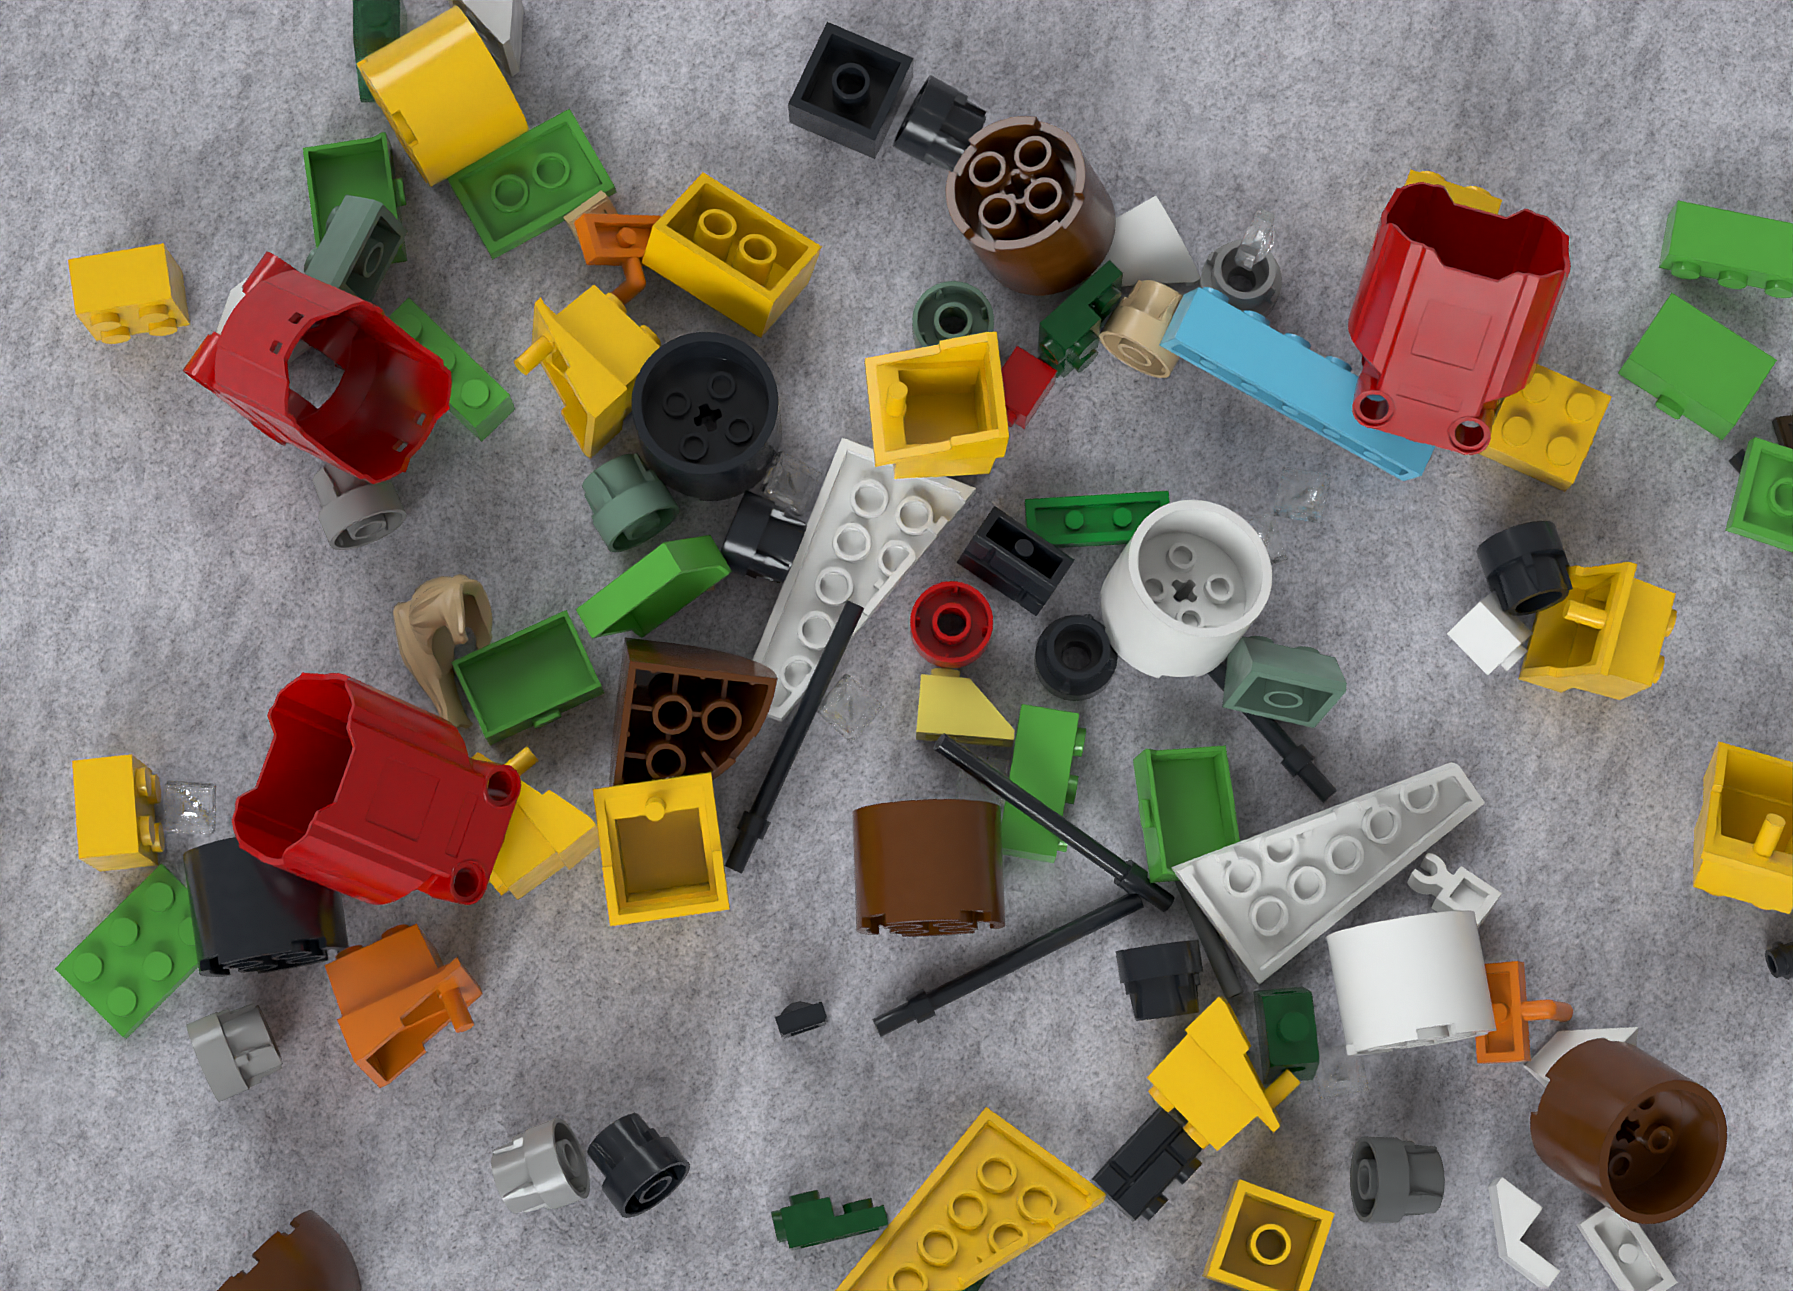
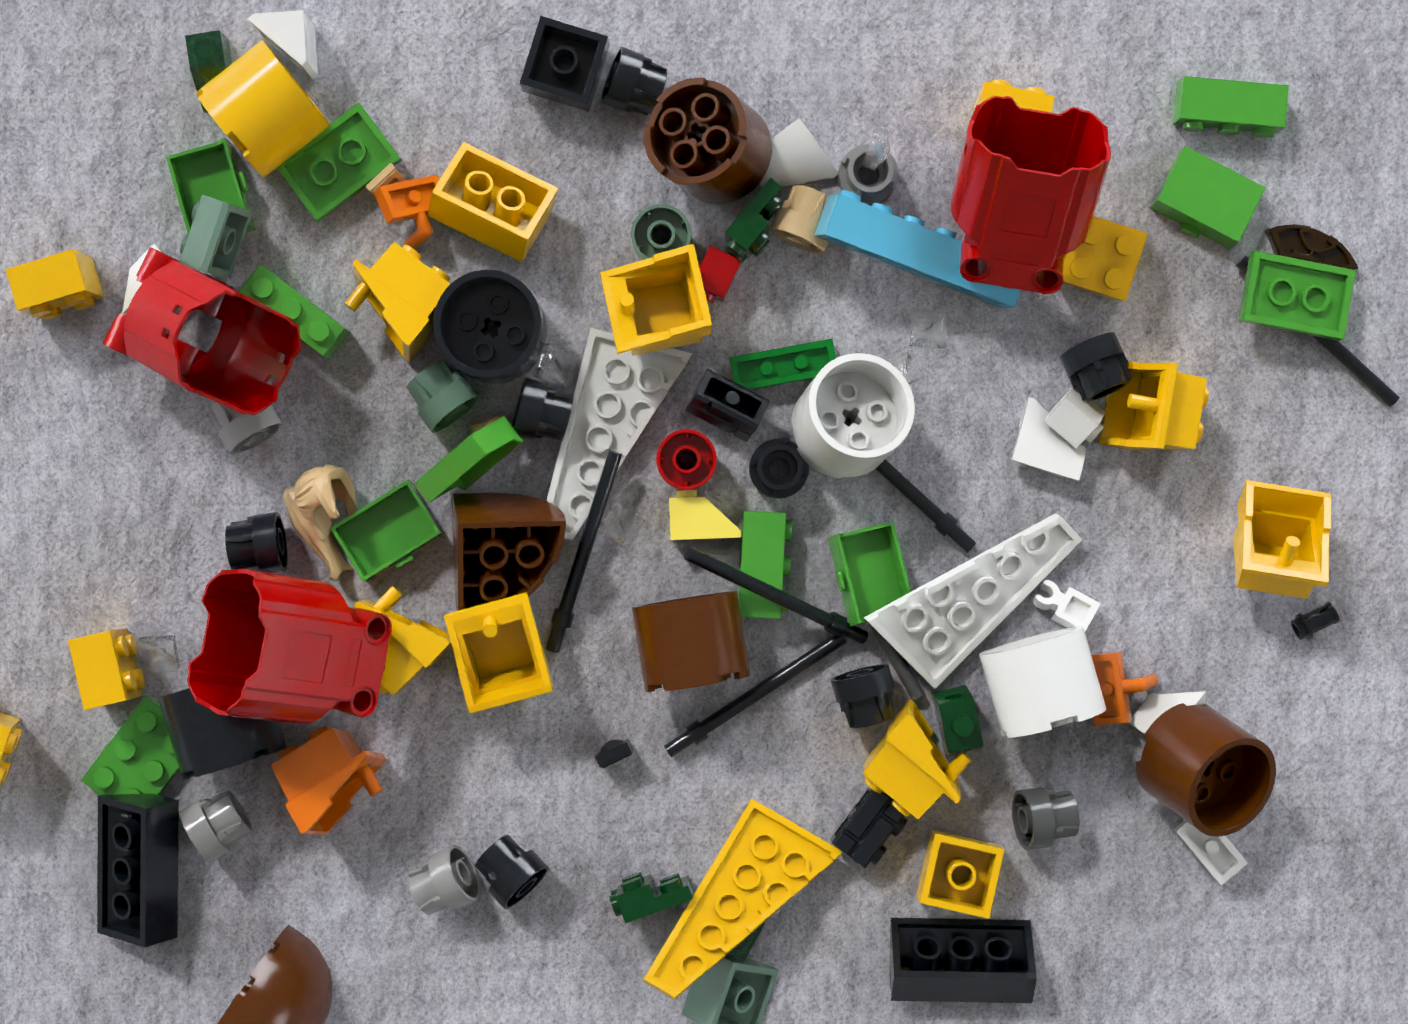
camera: 10 degrees left, 10 degrees up
(115, 1097) = (137, 868): none -> black slope
(355, 654) = (257, 543): none -> black piece
(1282, 681) = (929, 470): sand green slope -> none
(1445, 672) = (1043, 447): none -> white slope
(1512, 1216) = (1129, 834): white slope -> none

